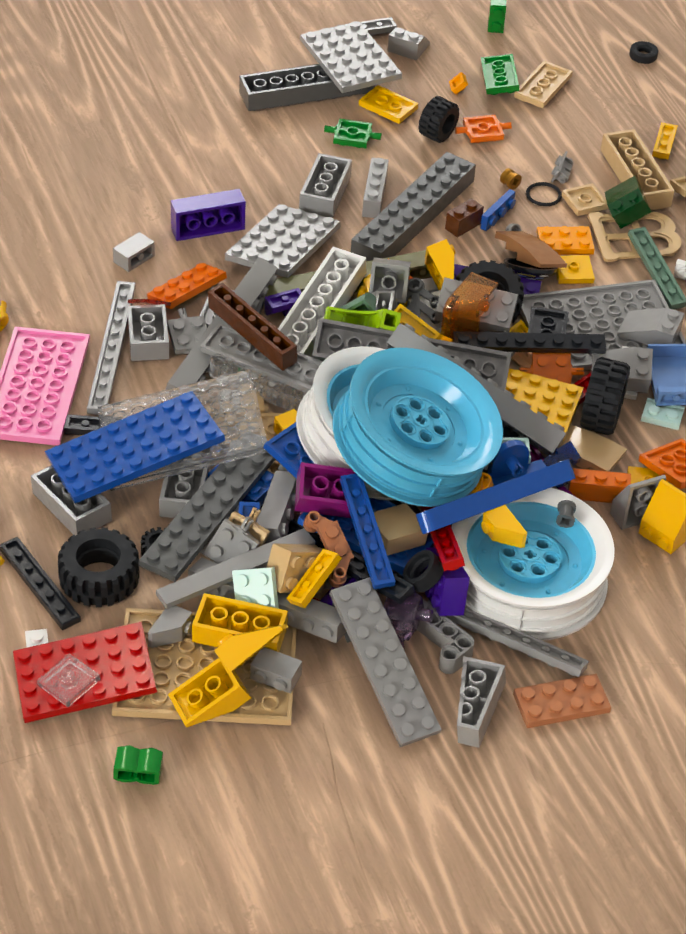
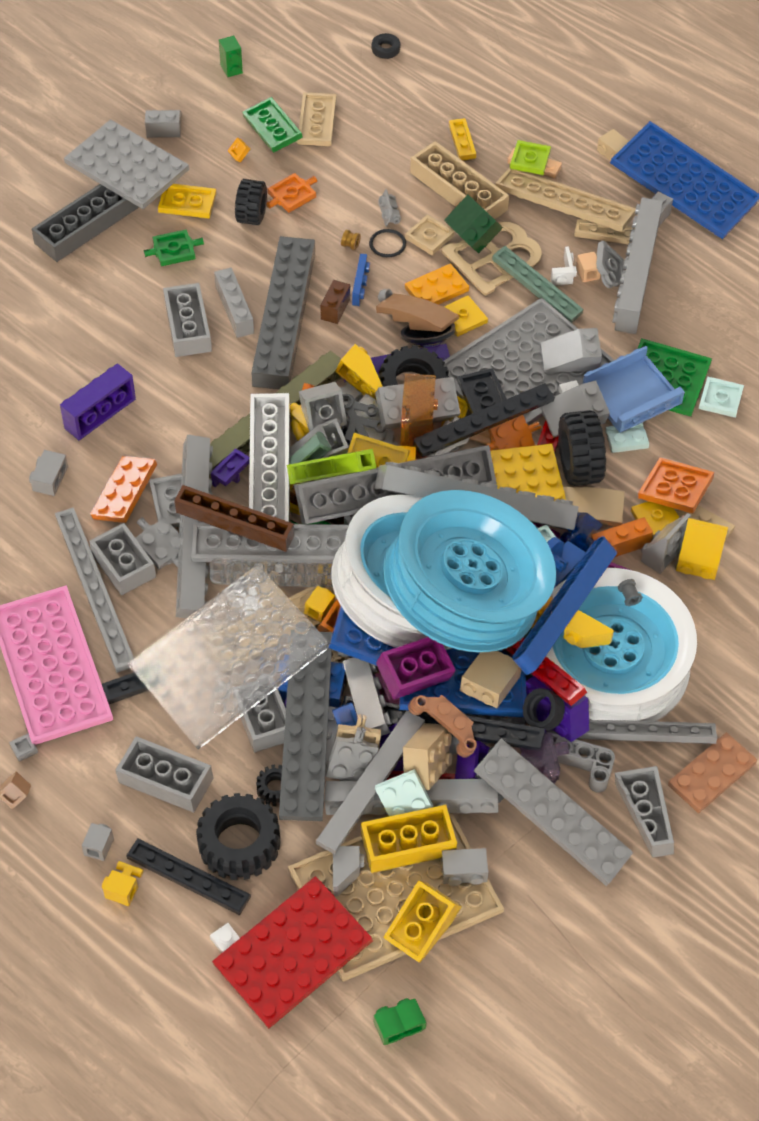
camera: 25 degrees left, 10 degrees up
(68, 680) = (289, 969): clear plate -> none
(134, 446) = (199, 697): blue plate -> none
(148, 302) = (104, 525): clear red piece -> none
(241, 647) = (438, 858): yellow slope -> none
(283, 239) = (184, 399): light grey plate -> none
(314, 578) = (452, 762): yellow plate -> none
(367, 531) = (477, 694): blue plate -> none
(379, 26) = (120, 114): light grey plate -> none

